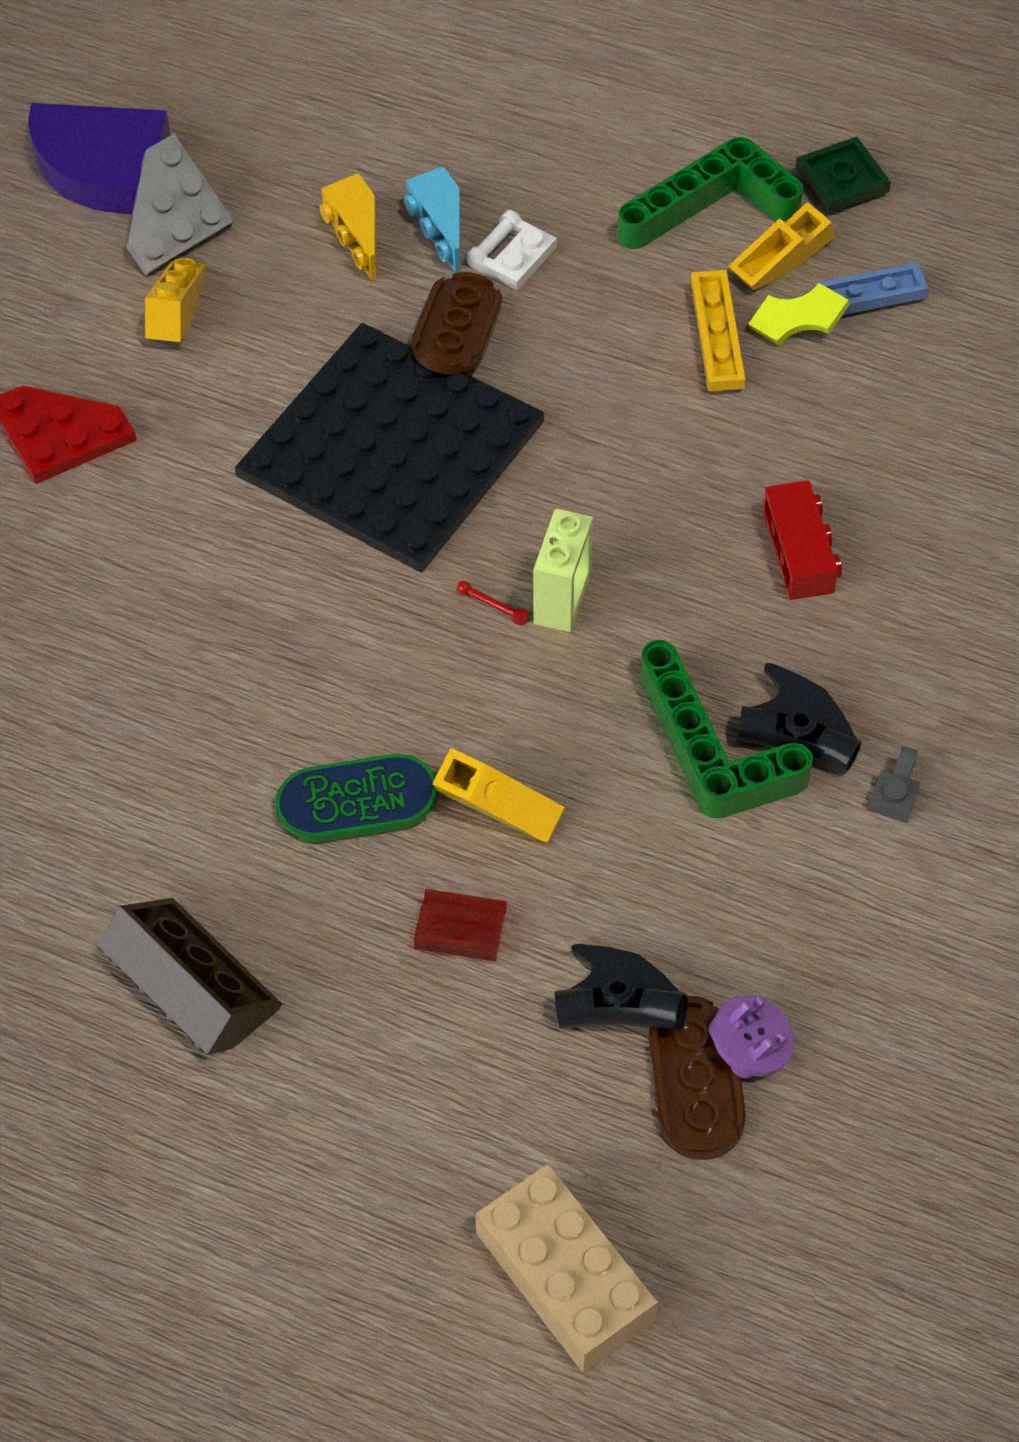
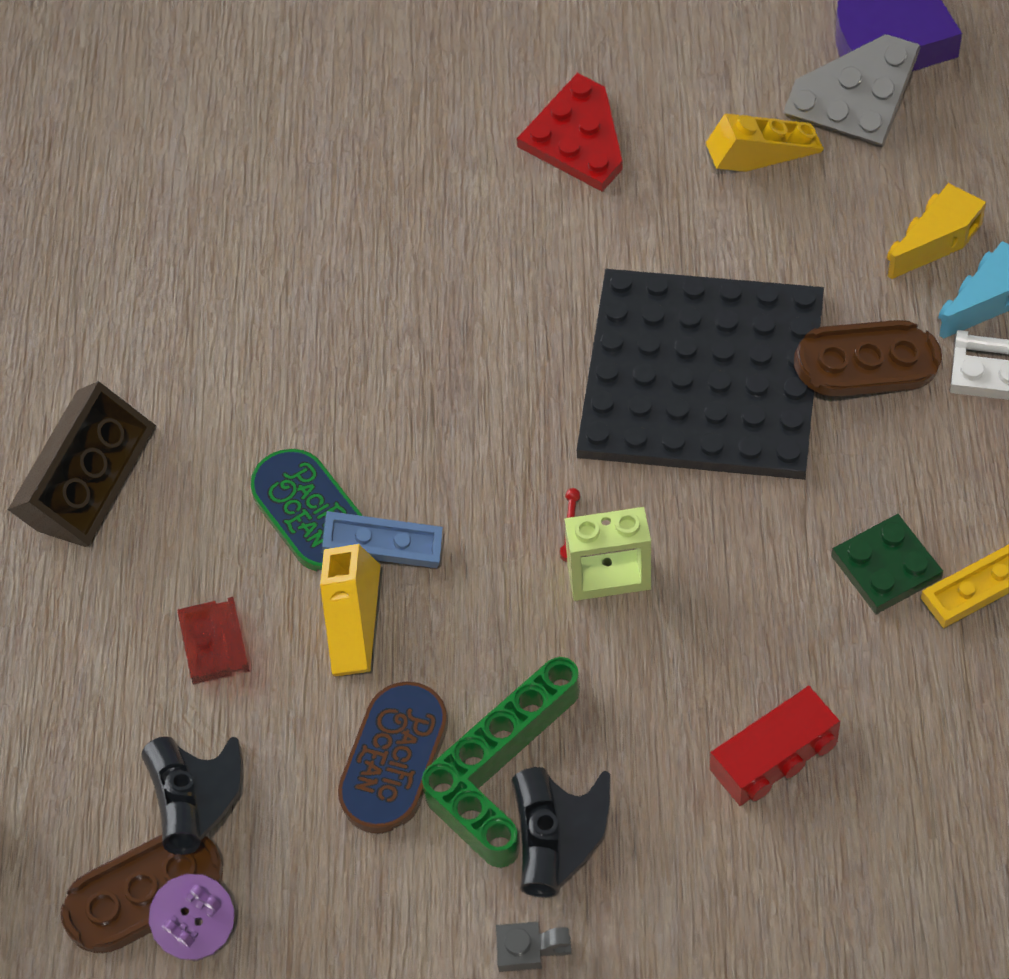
camera: 70 degrees right, 0 degrees up
(427, 750) = (385, 538): none -> medium blue plate
(661, 823) = (389, 757): none -> tile
(662, 399) = (887, 563): none -> dark green plate

